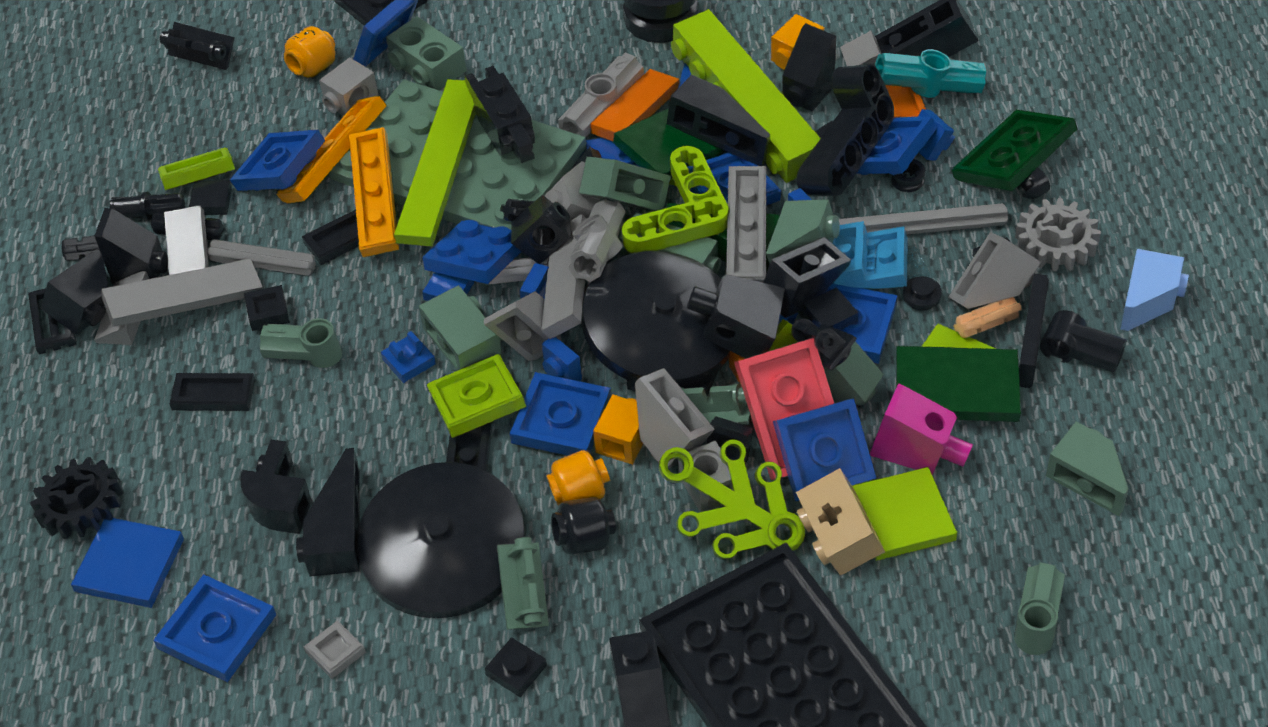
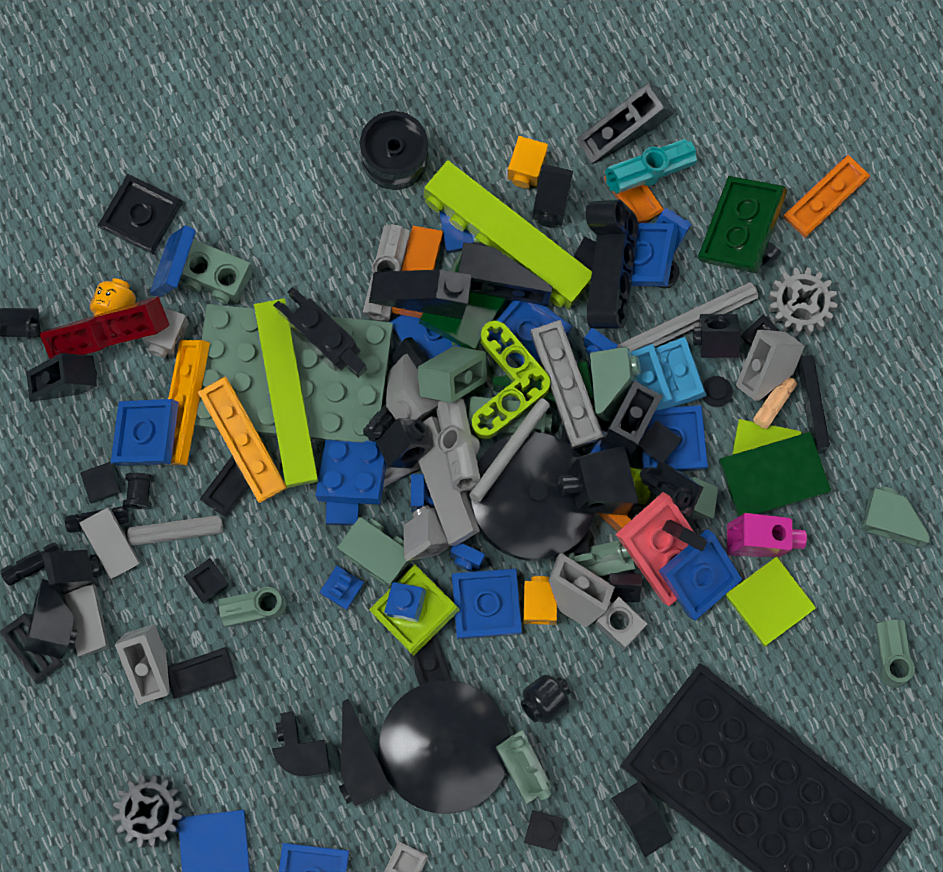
camera: 25 degrees left, 25 degrees up
(146, 204) = (53, 511): black axle -> none
(155, 351) = (144, 663): none -> light grey slope
(180, 292) = (133, 594): light grey tile -> none
(196, 168) = (74, 458): lime tile -> none
(226, 97) = (61, 377): none -> black slope
(243, 210) = (138, 491): none -> black bush
(277, 64) = (106, 329): none -> dark red slope
(467, 378) = (405, 601): none -> blue plate
(577, 477) = (526, 661): light orange head -> none
(631, 105) = (422, 291): none -> black slope
(650, 256) = (509, 450): none -> light grey bar
(738, 503) = (653, 646): lime plant -> none
(817, 385) = (685, 535): none -> black tile
(839, 523) = (749, 638): tan brick -> none
(861, 50) = (583, 153): light grey tile -> none
(943, 236) = (718, 335): none -> black brick
(1072, 338) = (847, 402): black piece -> none
(1124, 155) = (826, 196): none -> orange tile
(1153, 287) = (888, 331): light blue slope -> none

